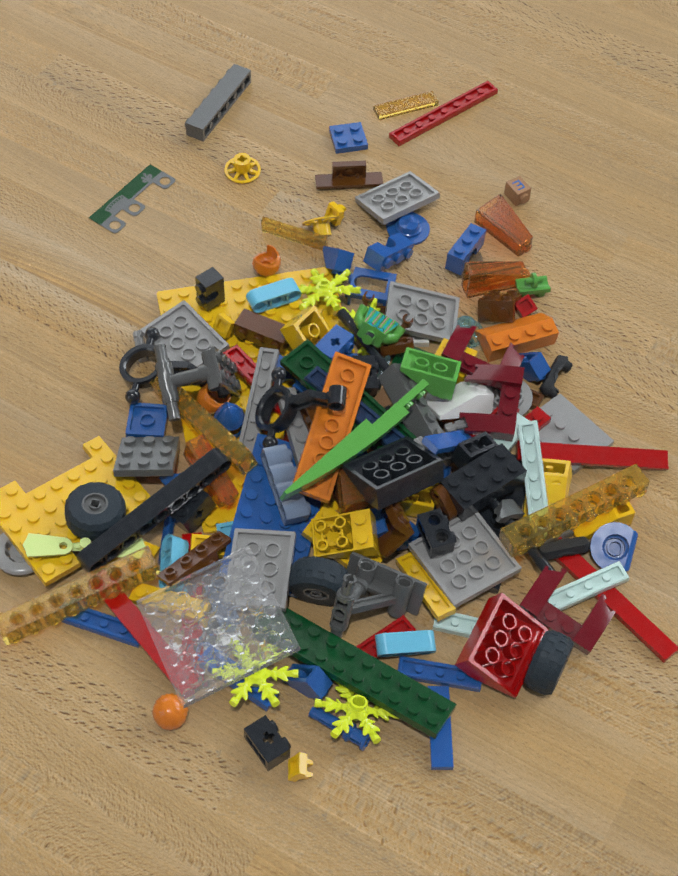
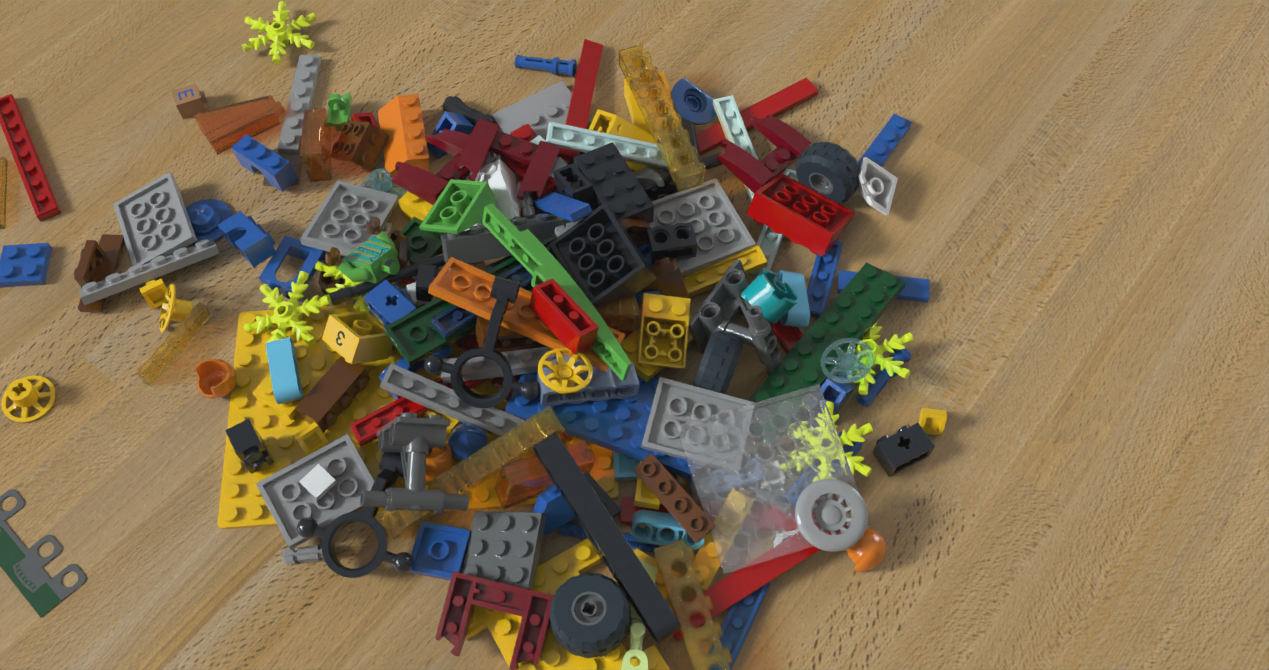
camera: 80 degrees left, 5 degrees up
(108, 438) = (468, 591): none -> dark red wedge
(187, 333) = (318, 481): none -> white tile
(188, 674) = (831, 515): none -> light grey wheel
(277, 455) = (565, 374): none -> yellow wheel
(323, 442) = (563, 316): none -> red brick
(335, 682) = (847, 364): none -> clear light blue wheel
(337, 259) = (237, 297): blue slope -> none
(353, 206) = (142, 273): none -> light grey plate
(390, 611) = (770, 295): none -> teal brick
(542, 705) = (876, 185): none -> white slope
(548, 260) = (300, 100): none -> light grey plate
(607, 231) = (279, 32): none -> neon yellow piece
(610, 725) = (887, 140): none -> blue plate
(628, 409) = (553, 65): none -> blue pin

